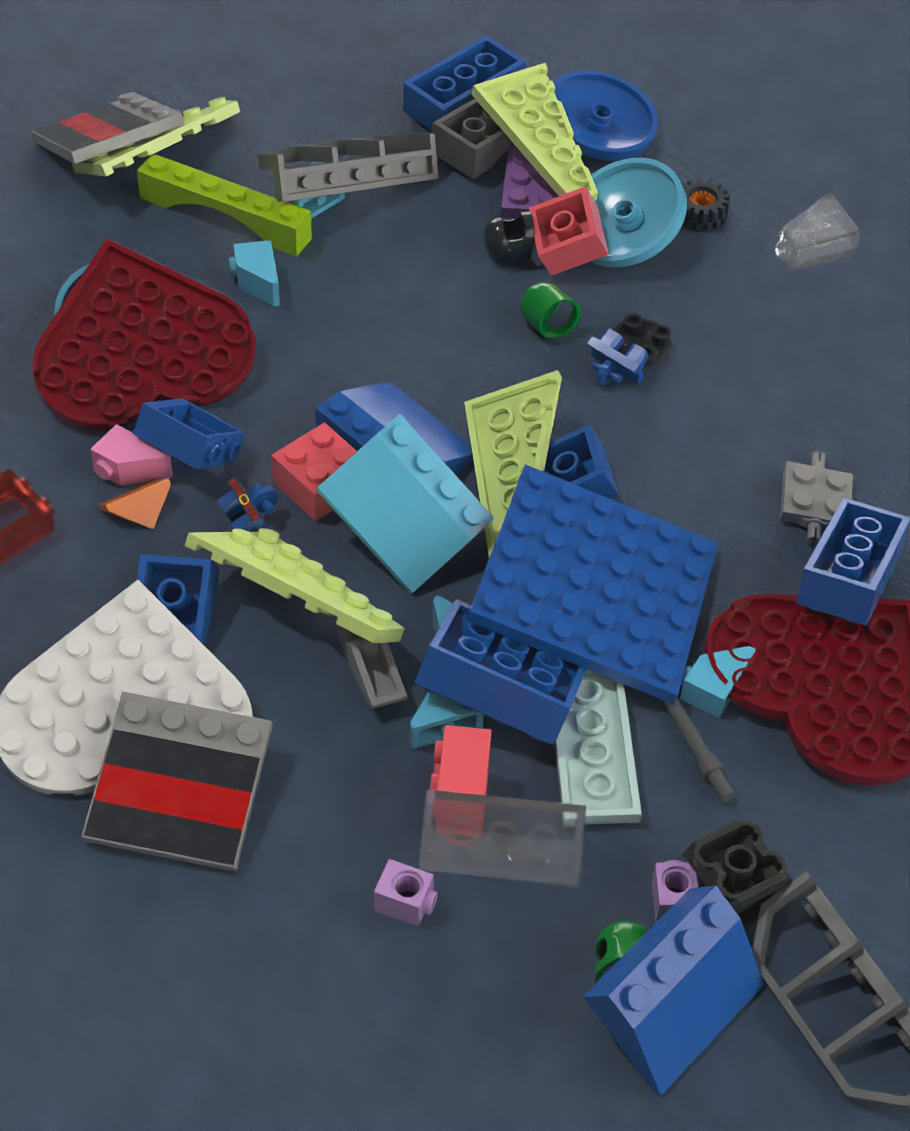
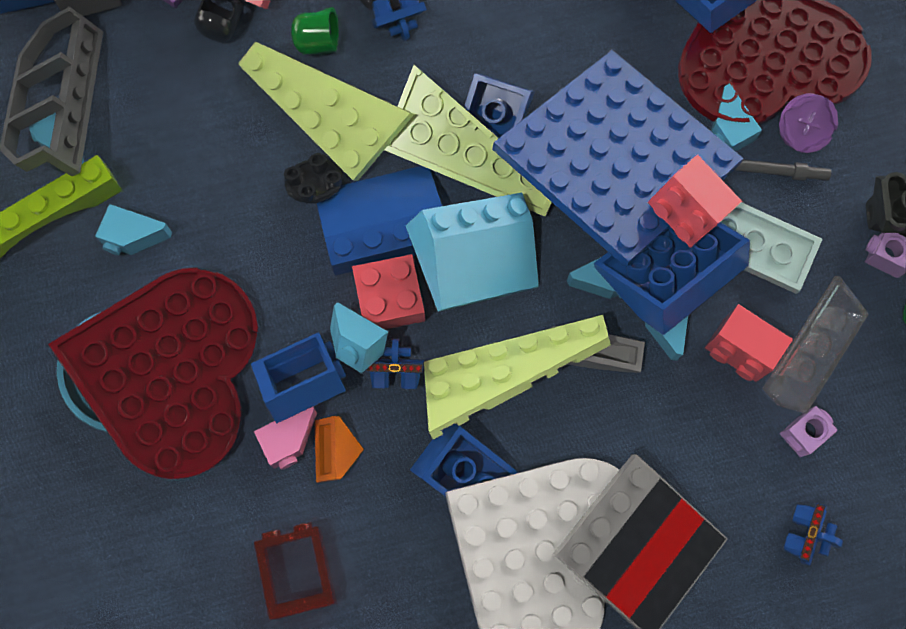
camera: 60 degrees left, 25 degrees up
(250, 452) = (356, 338): none -> medium azure slope
(285, 944) = (805, 547): none -> blue hips
(399, 372) = (313, 179): none -> black dish
(476, 351) = (336, 115): none -> yellowish green wing
(566, 624) = (694, 201): none -> coral brick
(769, 744) = (808, 122): none -> medium lavender tile

